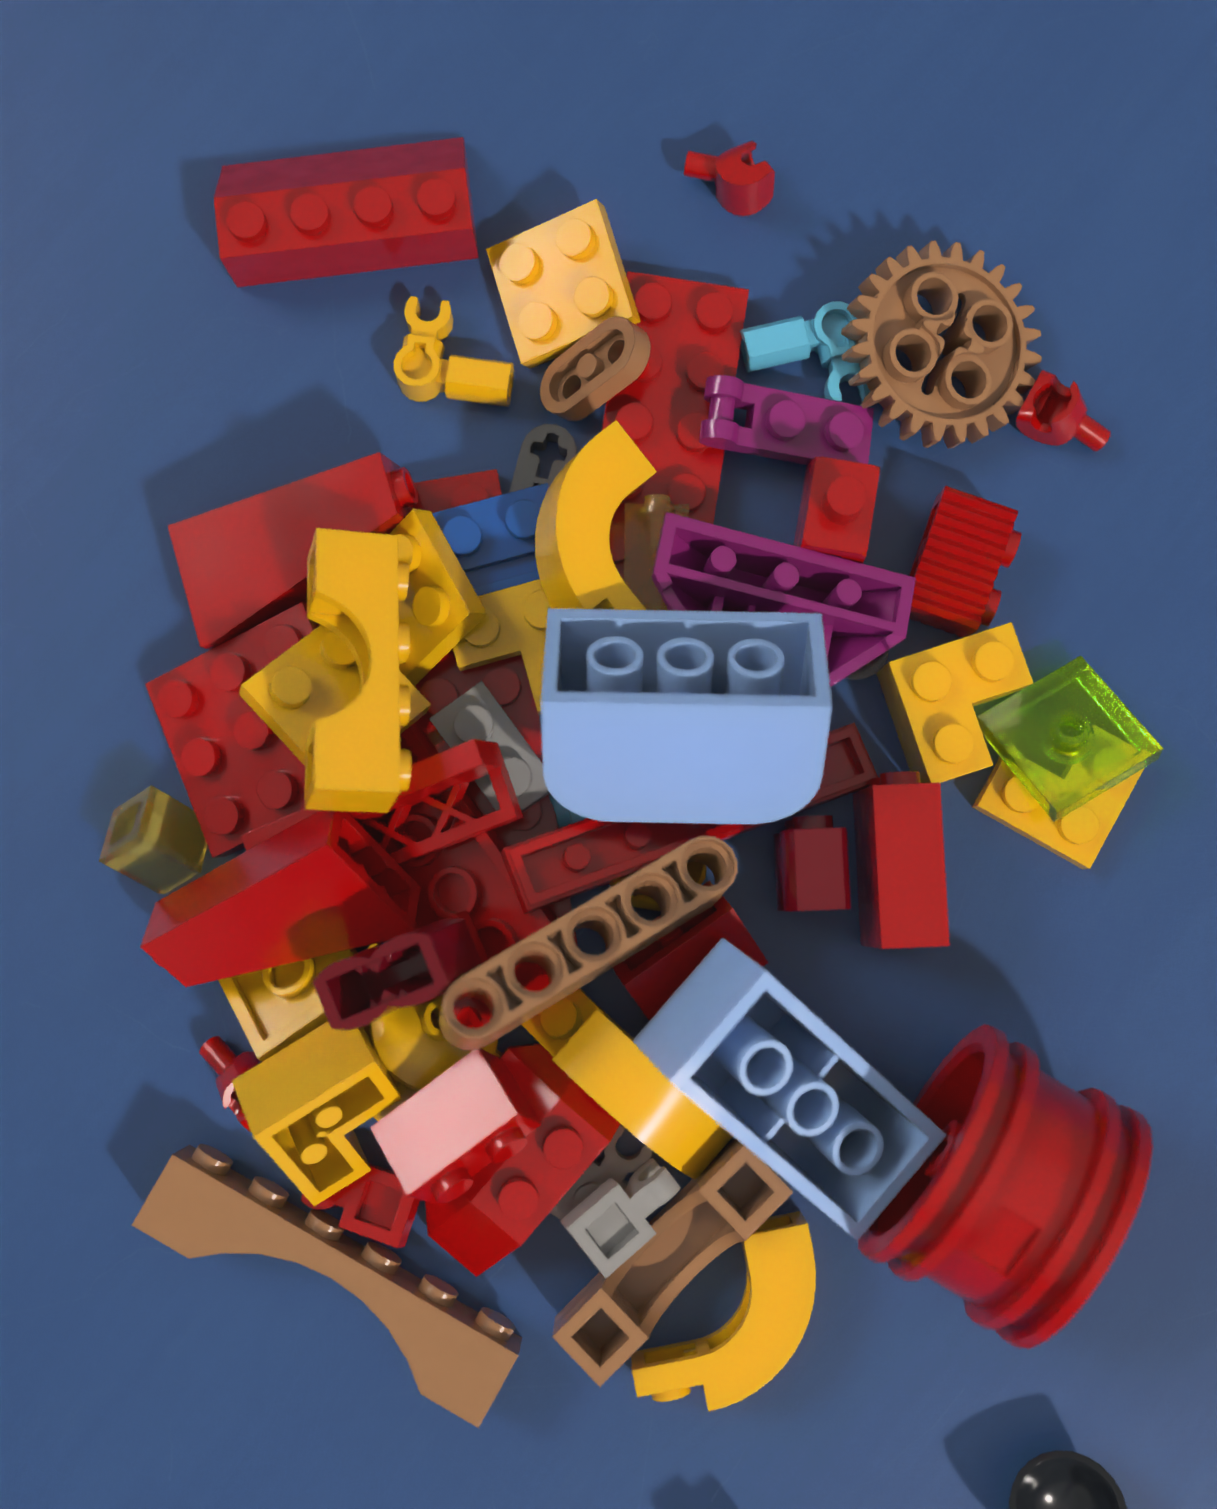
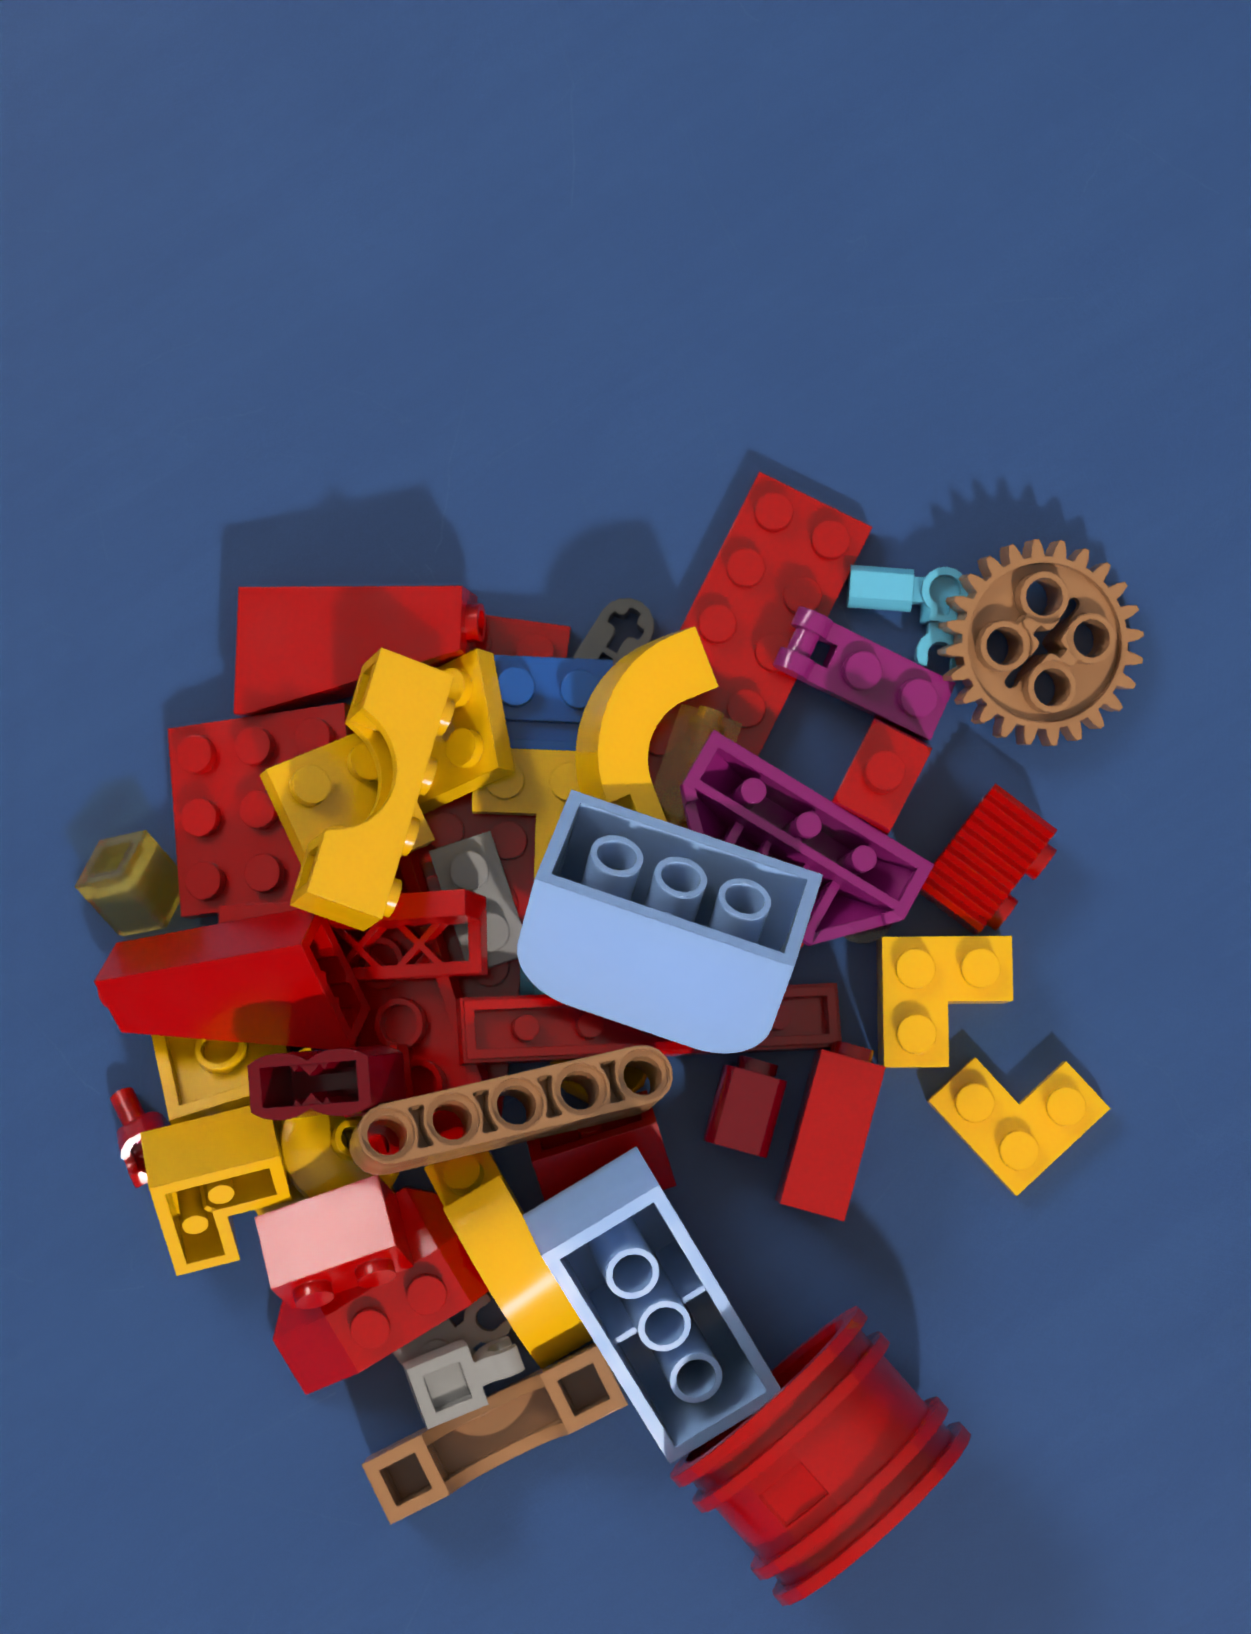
camera: 20 degrees right, 0 degrees up
(345, 212) = (505, 324): red slope -> none
(374, 1207) = (231, 1295): red plate -> none
(425, 373) = (529, 507): yellow bar -> none
(451, 1348) = (260, 1450): medium nougat arch -> none
(561, 282) = (691, 467): yellow plate -> none
(595, 369) = (700, 557): medium nougat plate -> none
(739, 183) = (892, 418): red piece -> none
(757, 1336) = (557, 1533): yellow arch -> none
(1057, 414) = (1135, 745): red piece -> none
(1068, 738) = (1034, 1063): clear neon green plate -> none

